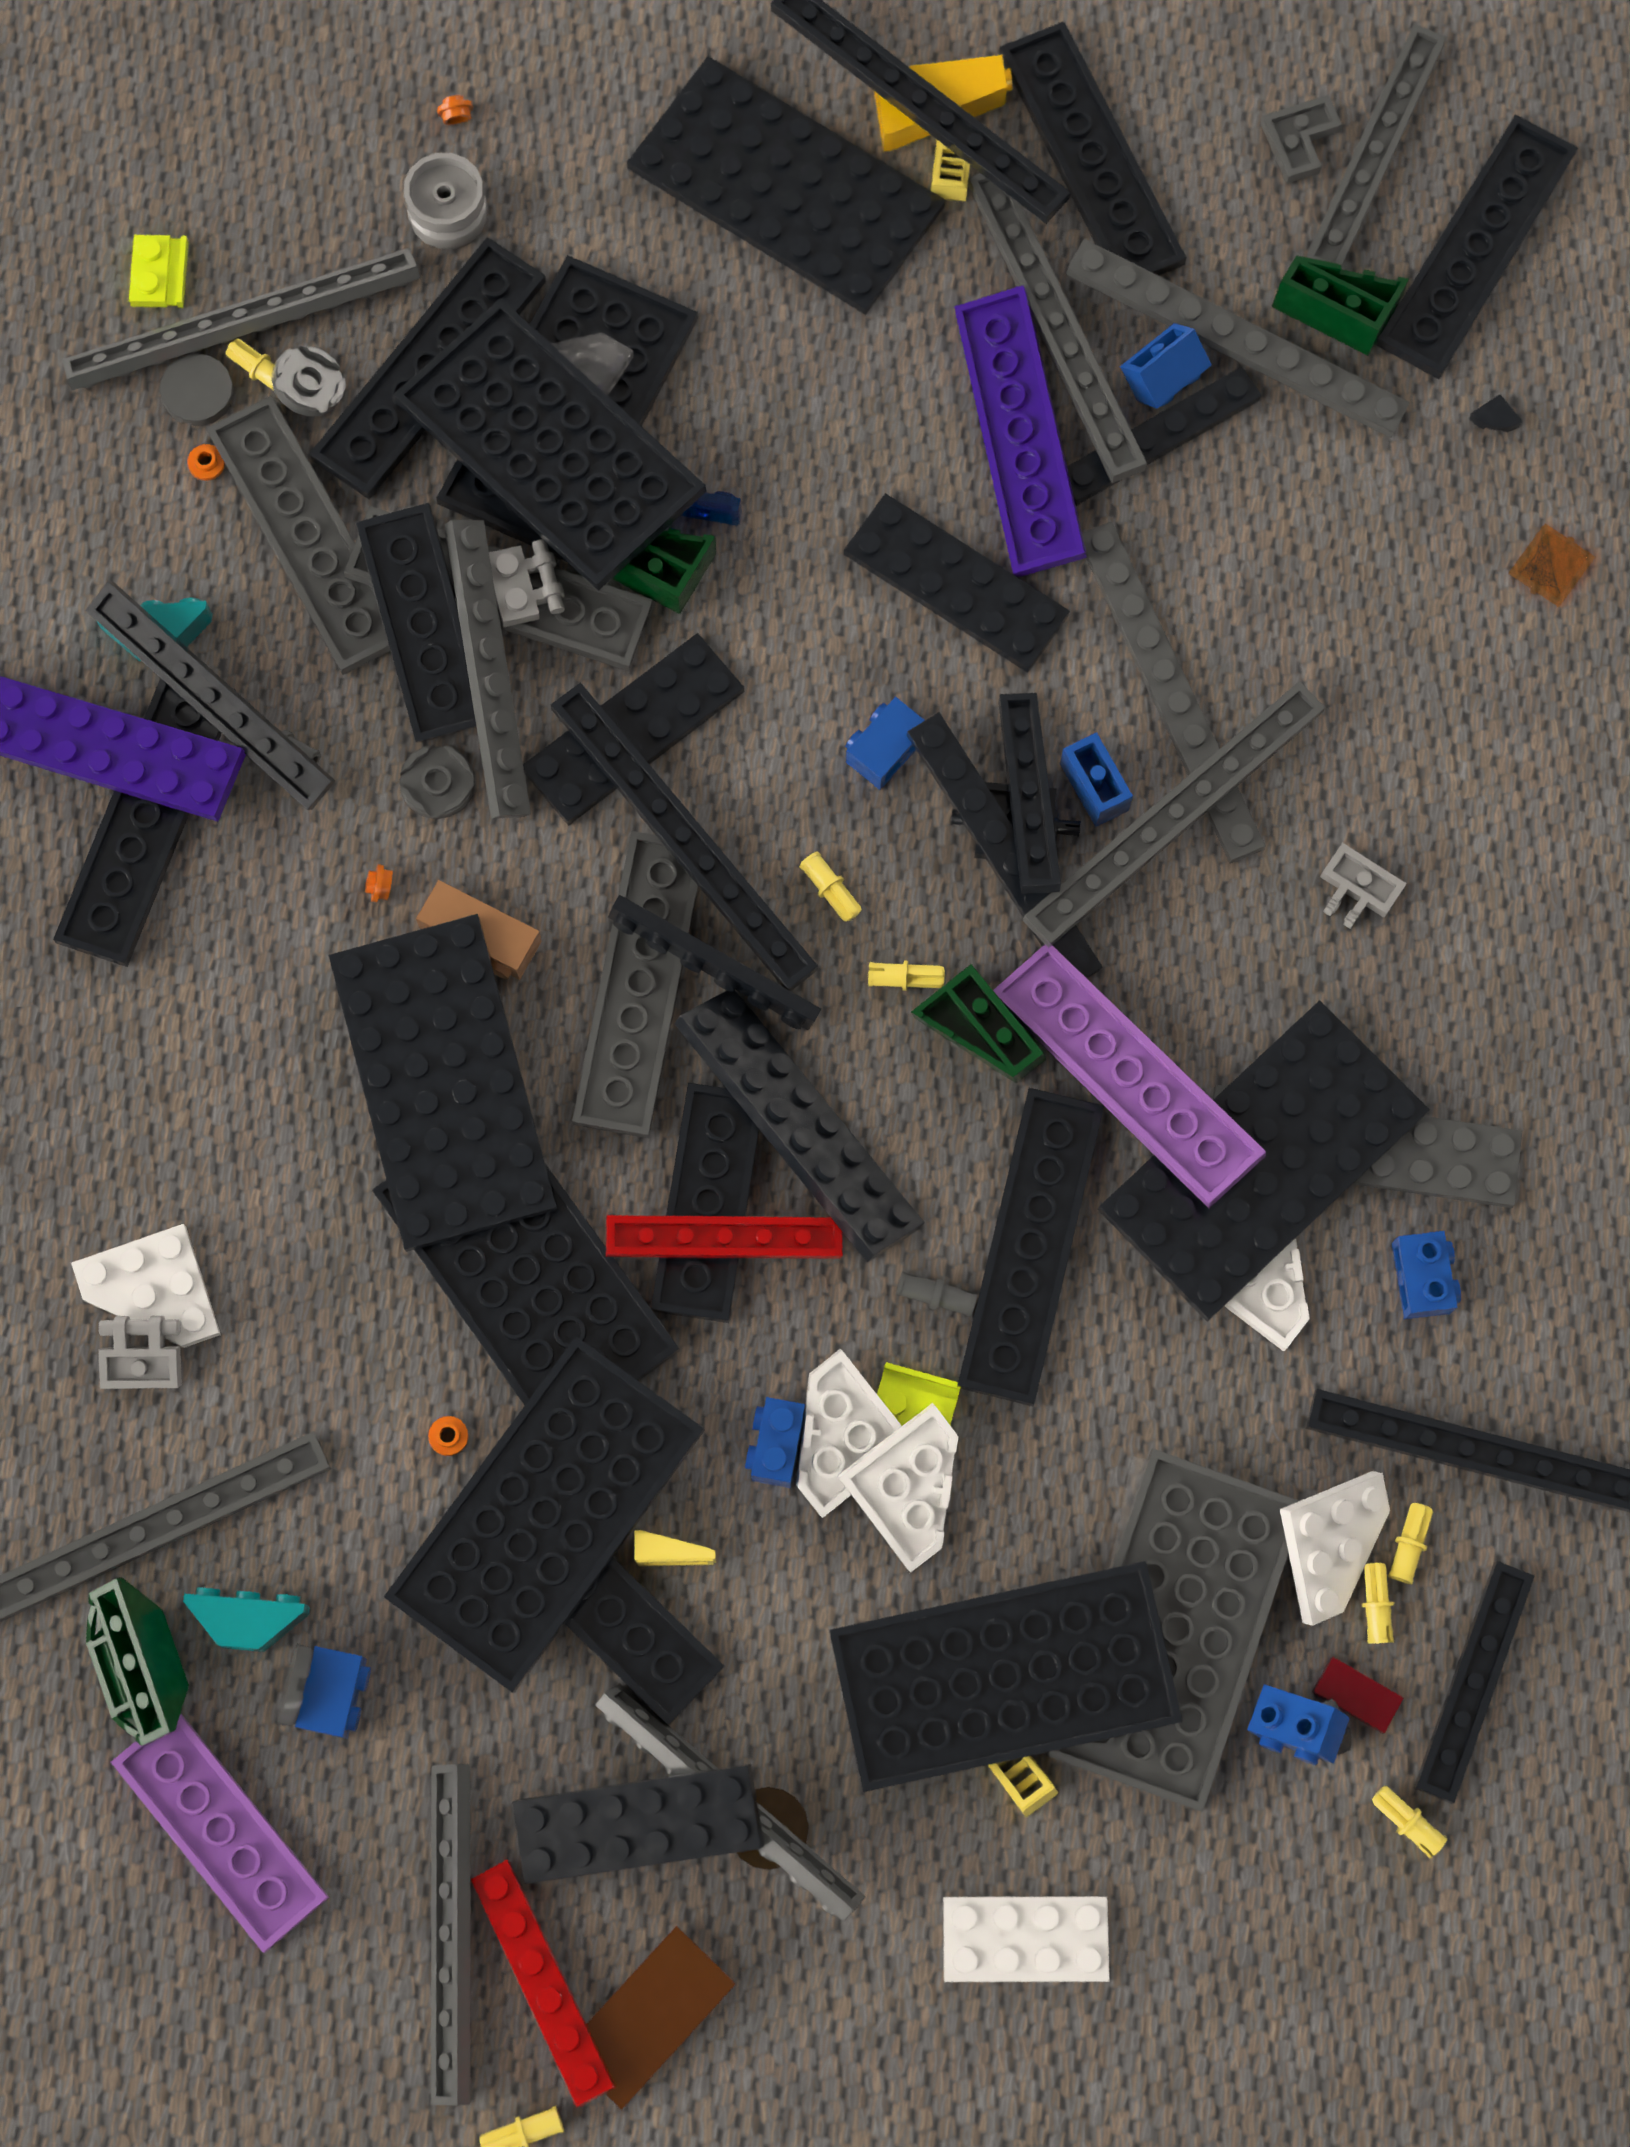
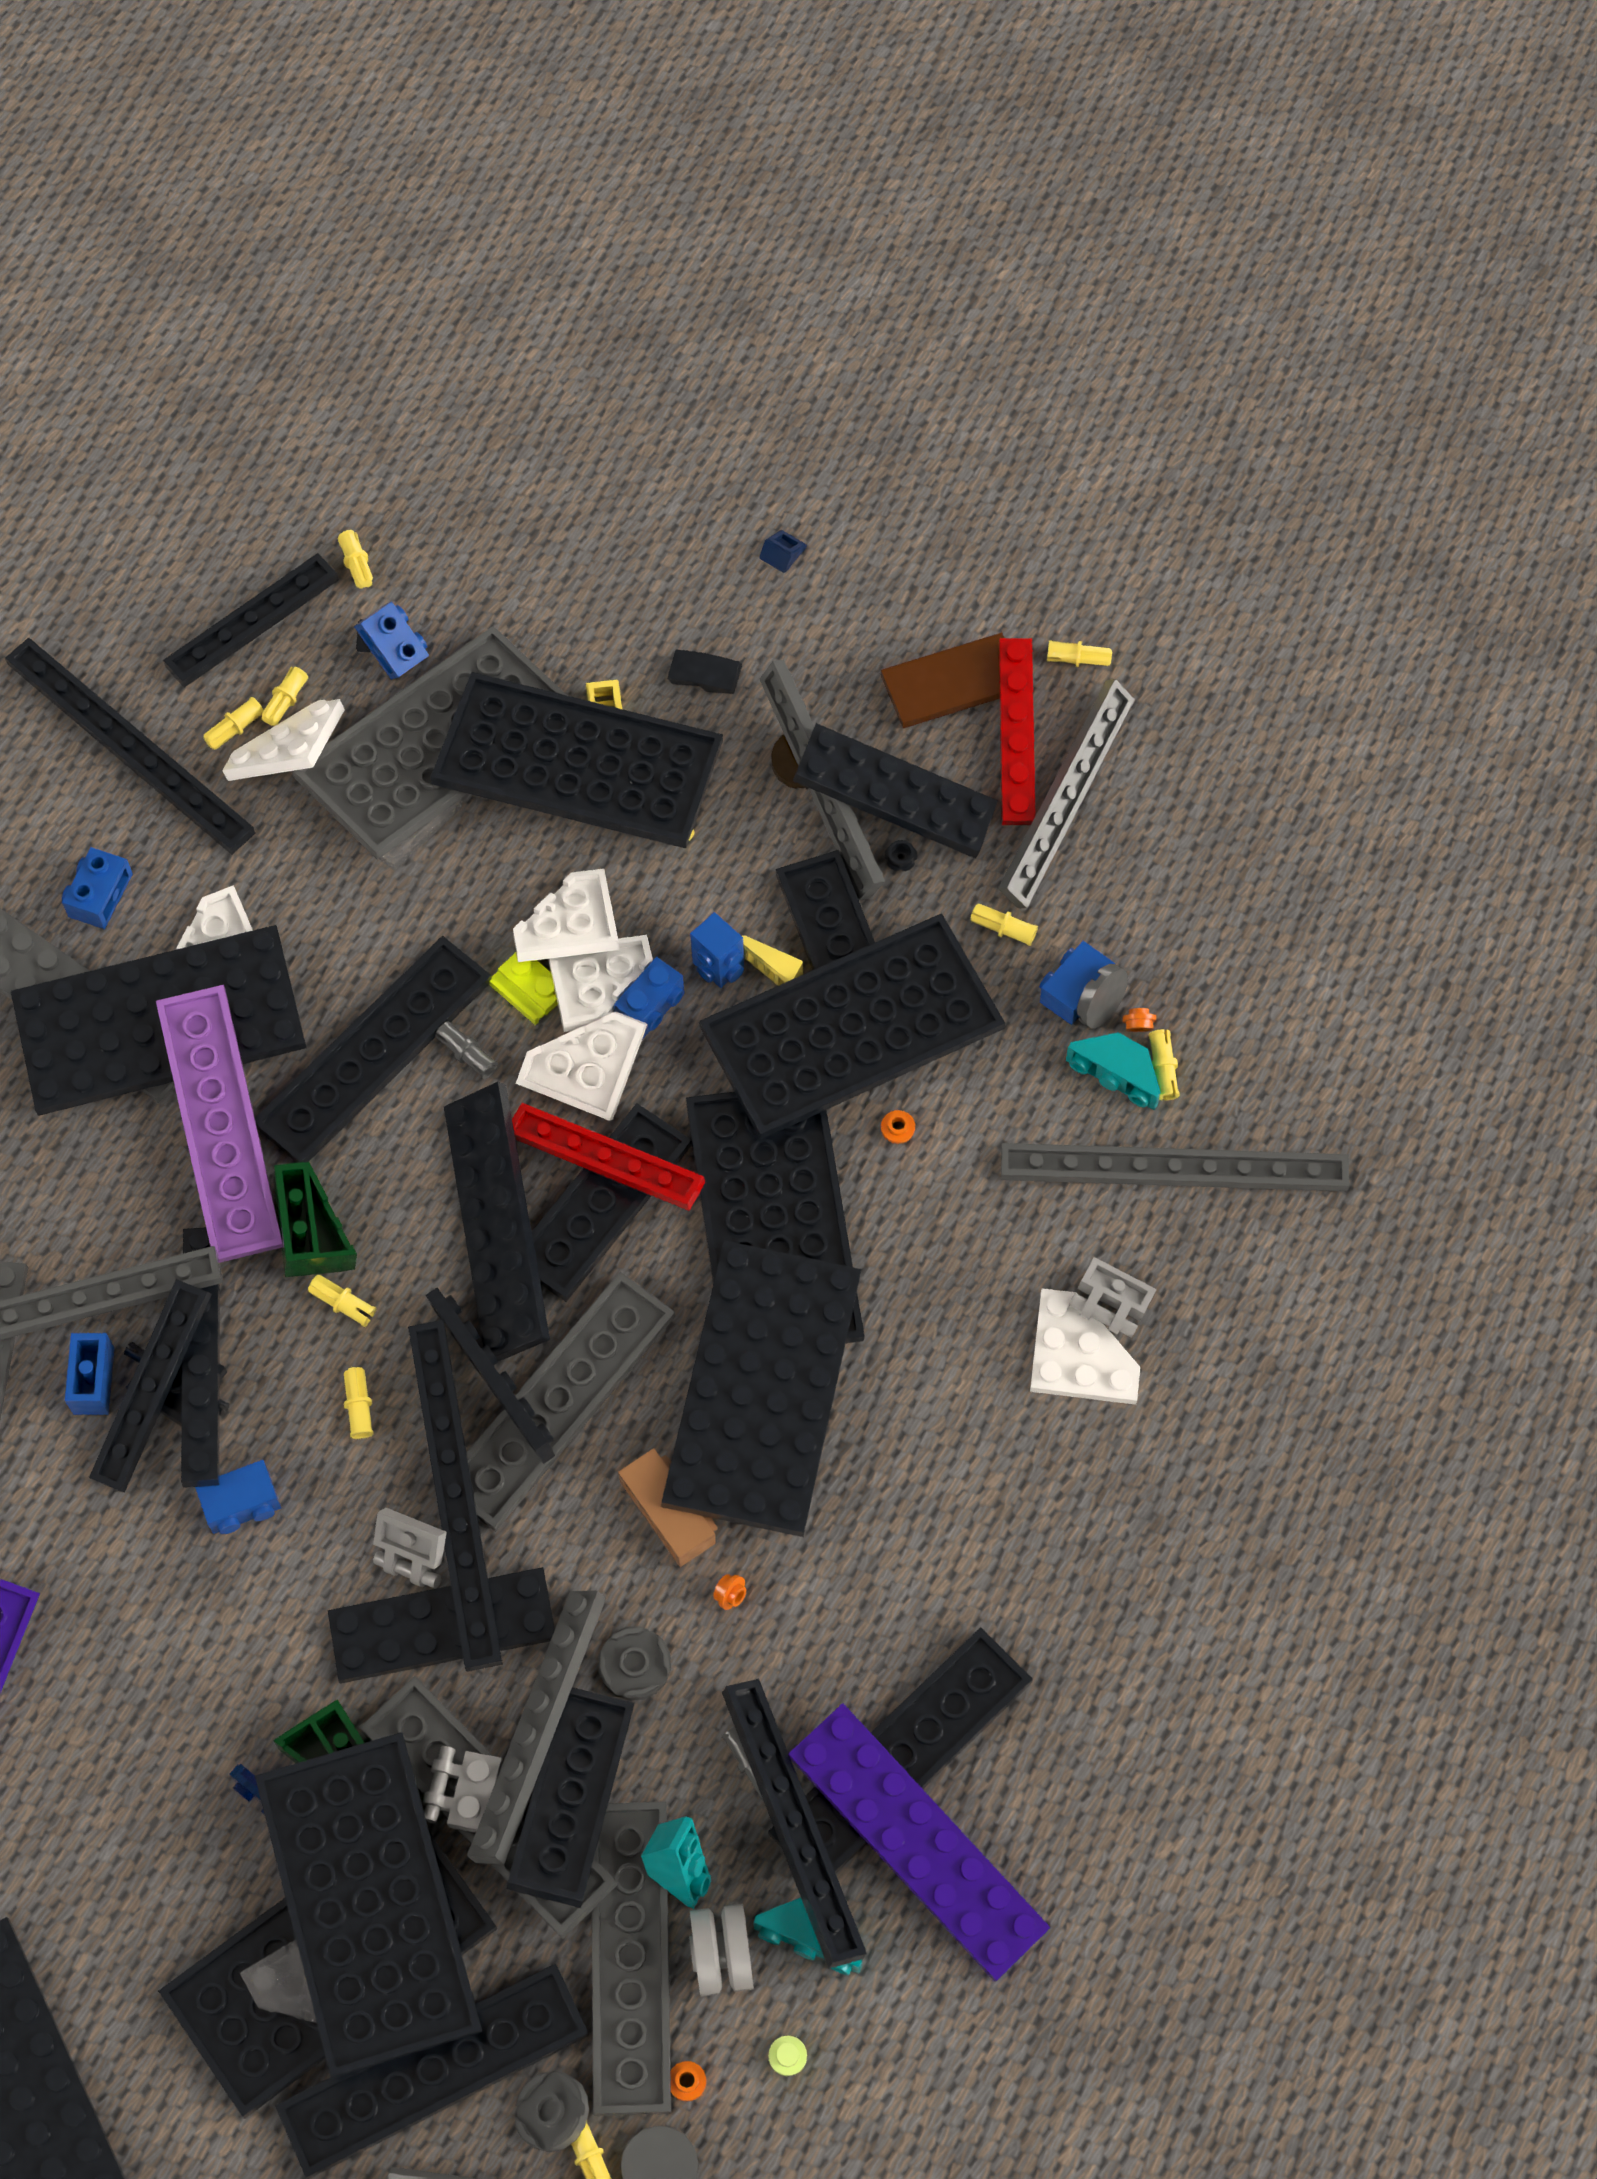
camera: 150 degrees left, 10 degrees down
(128, 522) = (787, 2055): none -> yellowish green plate
(135, 1661) = (1217, 1066): dark green wedge -> none
(199, 1648) = (1164, 1064): none -> light yellow pin
(222, 1833) = (1205, 936): medium lavender plate -> none
(225, 561) = (720, 1950): none -> light grey wheel
(247, 1686) = (1139, 1020): none -> orange plate
(298, 612) = (677, 1861): none -> teal slope
(446, 1731) = (1004, 924): none -> light yellow axle
(610, 1758) = (903, 848): none -> black plate
(697, 768) = (410, 1539): none -> light grey plate
(729, 1524) = (717, 951): none -> blue brick
(800, 1329) = (586, 1064): none -> white plate
(934, 1878) = (704, 670): none -> black slope
(935, 2099) = (781, 550): none -> dark blue slope
(956, 582) = (92, 1617): black plate -> none
(1025, 1939) = (662, 611): white plate -> none
(1358, 1695) = (337, 651): dark red tile -> none

